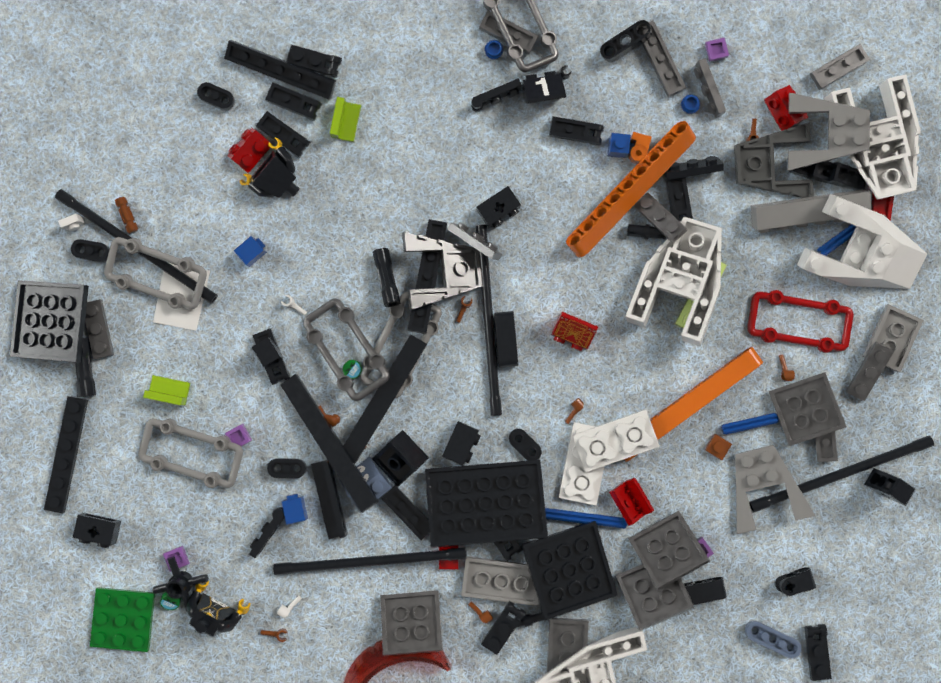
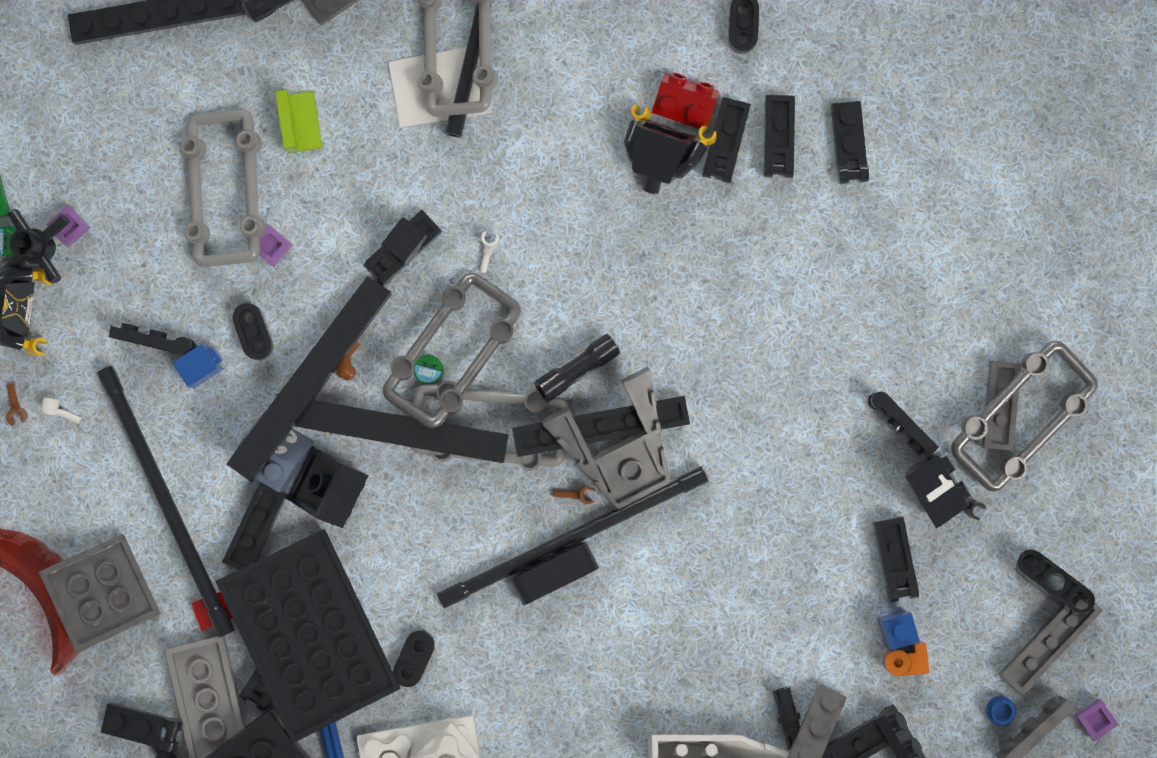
camera: 70 degrees right, 0 degrees up
(85, 531) = (76, 112): black brick -> none
(250, 251) = (541, 160): blue brick -> none
(280, 69) = (817, 99): black plate -> none
(329, 499) = (231, 409): black fence -> none
(345, 120) = (781, 220): lime panel -> none
(461, 443) = (380, 566): black brick -> none
(475, 240) = (678, 475): flat silver plate -> none
(485, 617) = (148, 695): dark orange hand -> none
(494, 49) = (968, 394): blue plate -> none
(503, 198) = (757, 493): black brick -> none
(574, 331) = (602, 667): red slope -> none
(577, 405) = (497, 714): dark orange hand -> none
(631, 189) = (841, 672): orange beam -> none

